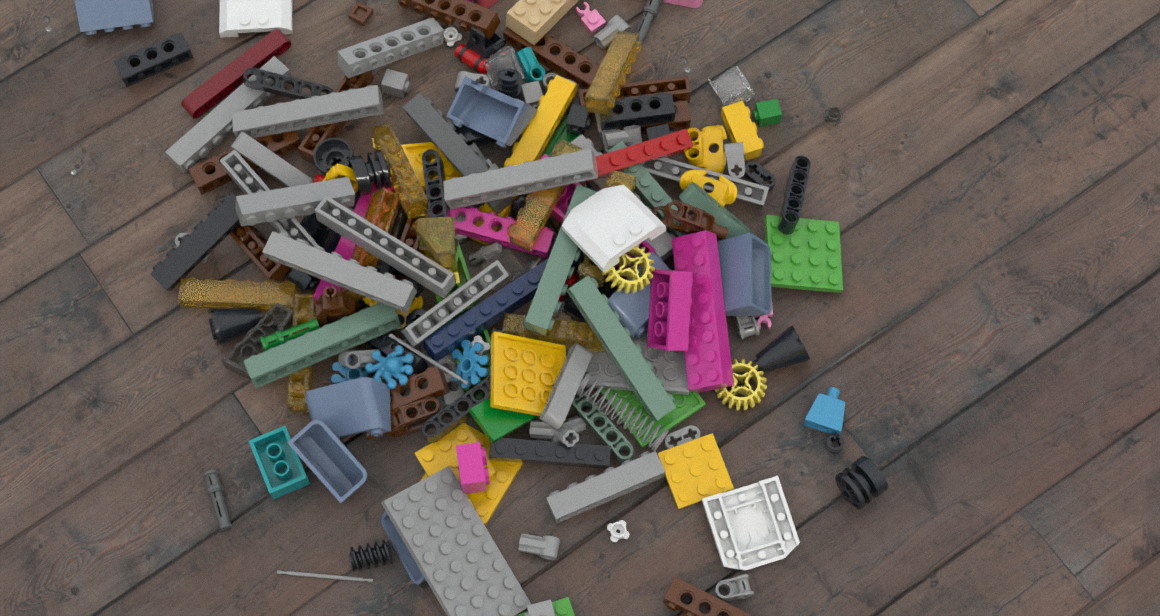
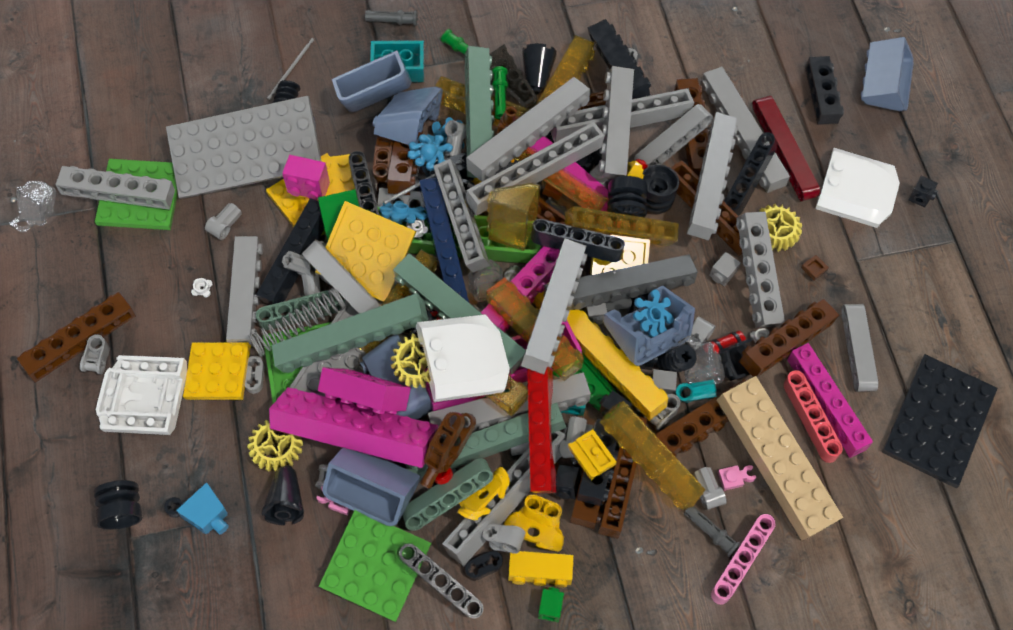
camera: 110 degrees right, 5 degrees down
(229, 416) = (455, 42): none -> green pin
(321, 51) = (788, 226): none -> light yellow gear
(481, 112) = (653, 314): none -> dark azure animal
(638, 110) = (592, 454): none -> yellow plate
(733, 86) = (591, 575): clear piece -> none

